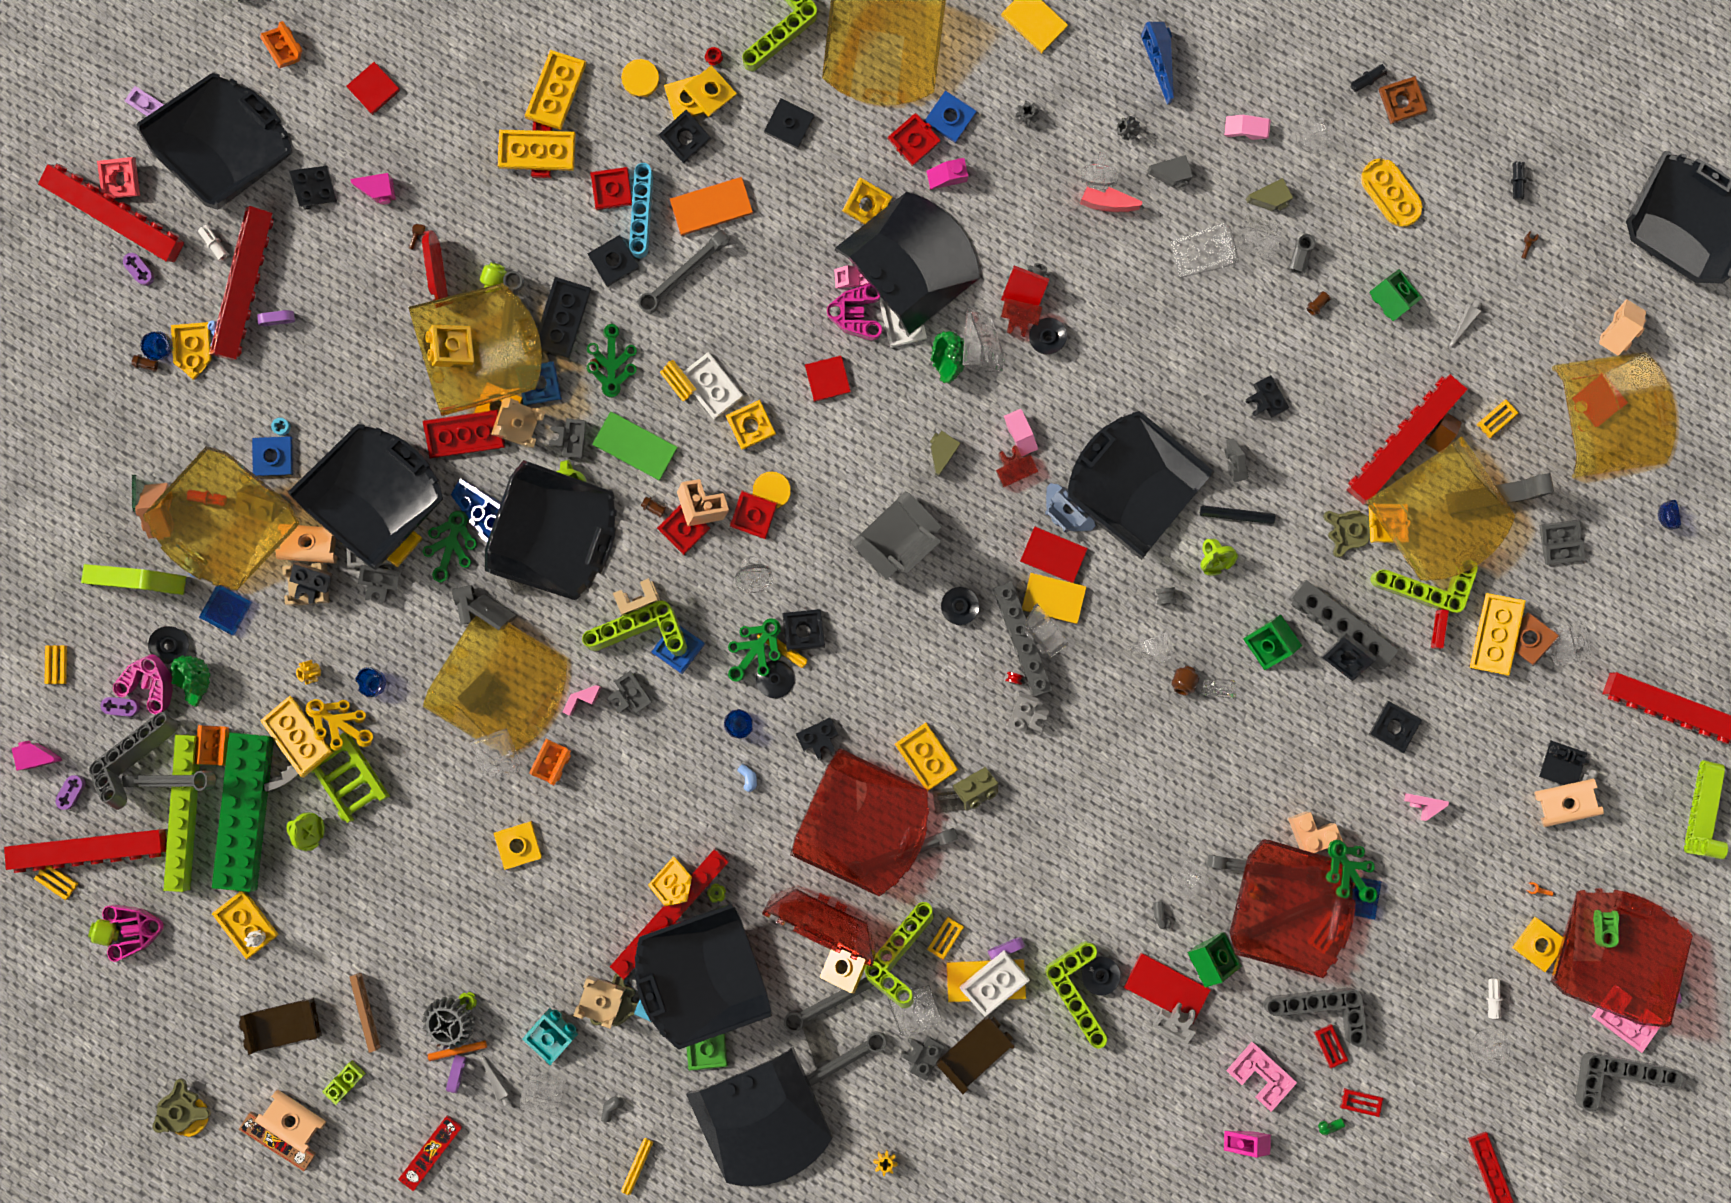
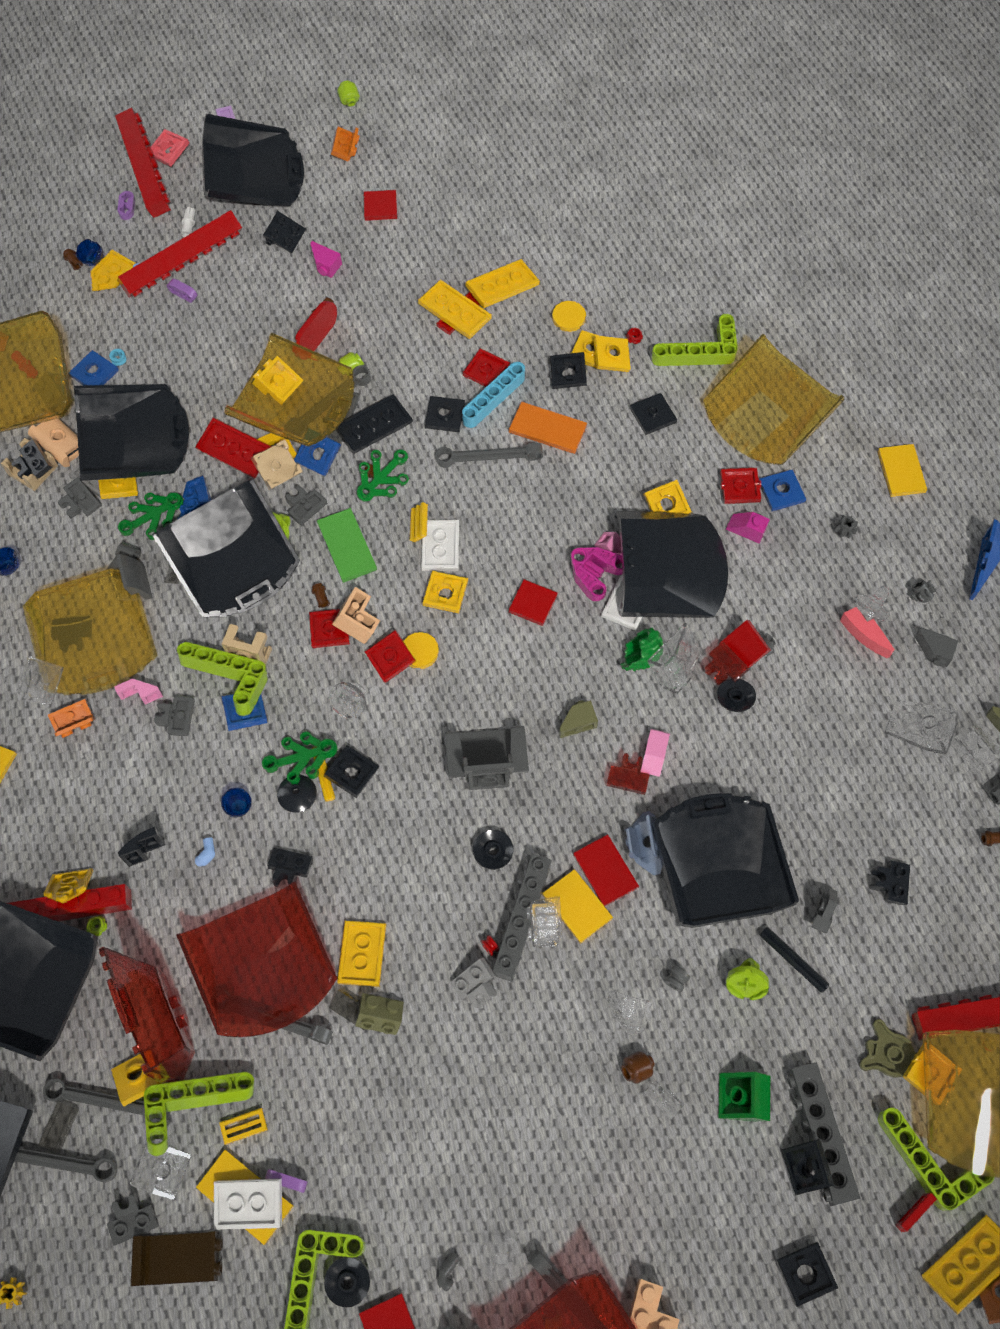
camera: 40 degrees right, 20 degrees down
(698, 817) = (135, 849): none -> black slope

